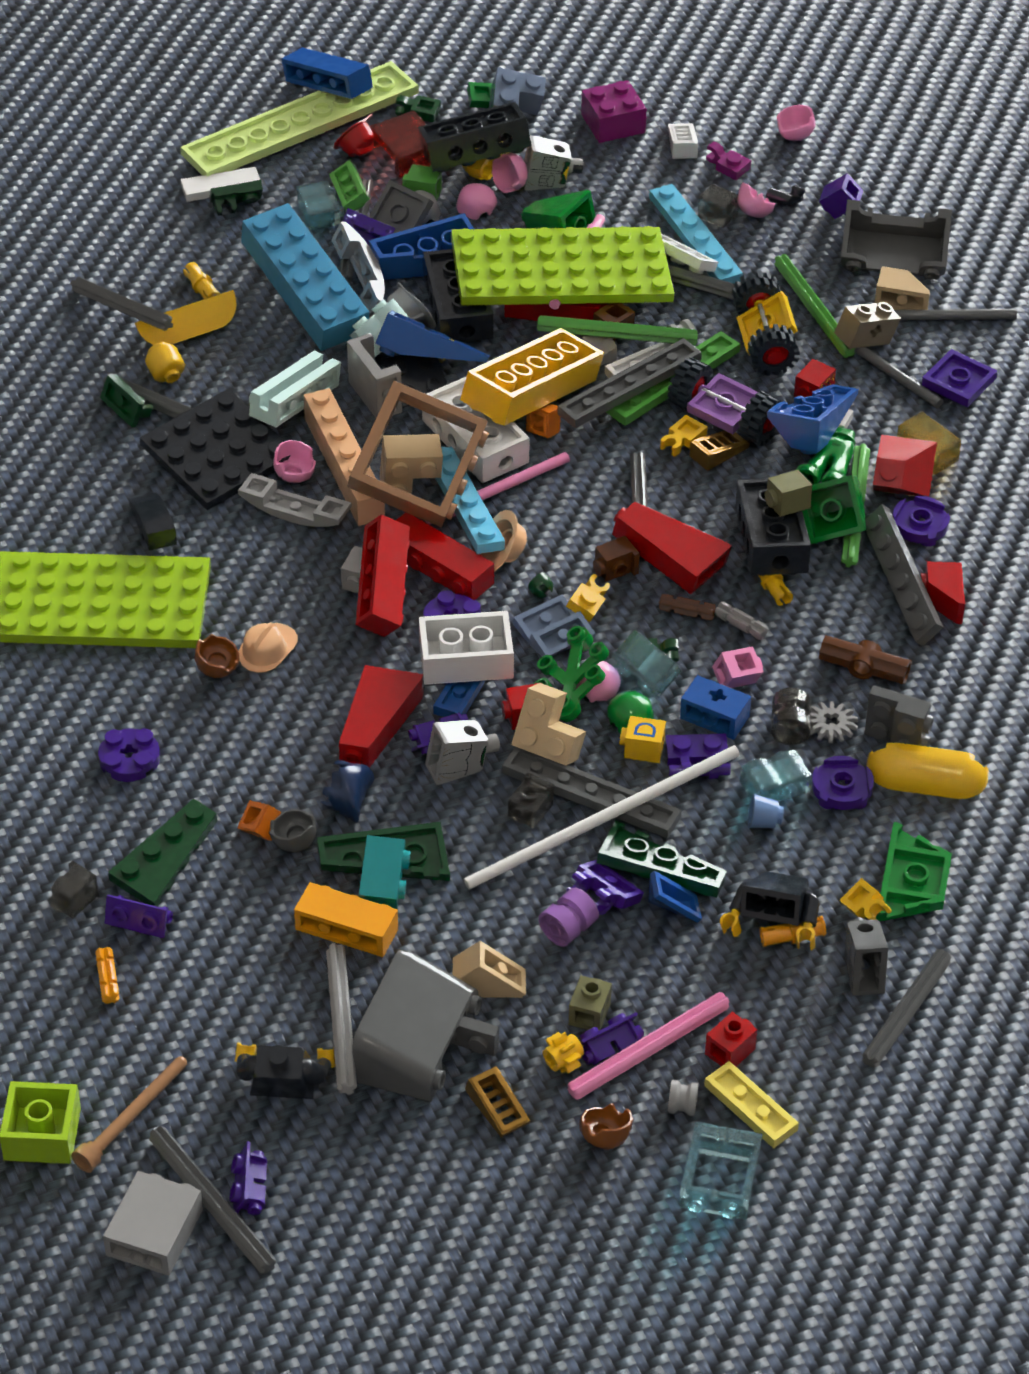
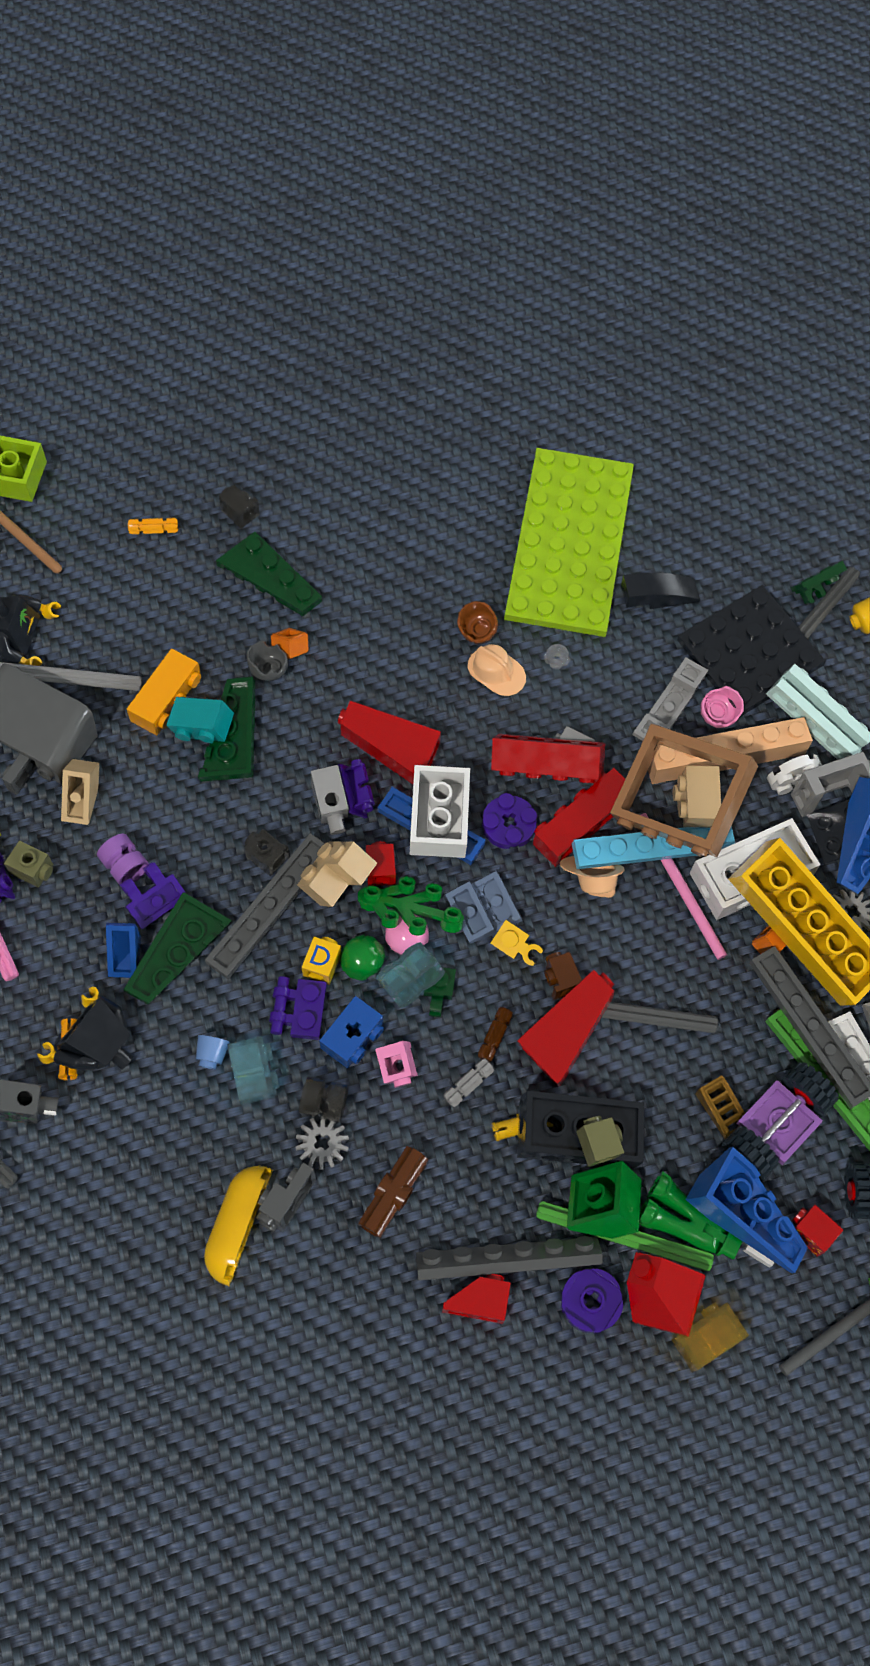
camera: 95 degrees right, 20 degrees up
(118, 742) = (383, 544): dark purple plate -> none
(137, 916) = (212, 540): dark purple hinge -> none
(246, 594) = (560, 651): none -> clear plate
(348, 789) = (301, 707): dark blue hair -> none
(366, 398) = (791, 772): none -> white plate
(540, 585) = (537, 904): dark green hinge -> none
(601, 817) = (231, 912): white piece -> none
(682, 434) = (744, 1077): yellow plate -> none
(837, 796) = (226, 1120): dark purple plate -> none
(864, 901) = (80, 1117): yellow plate -> none
(913, 875) = (108, 1174): green wing -> none
(959, 378) = (820, 1403): dark purple plate -> none

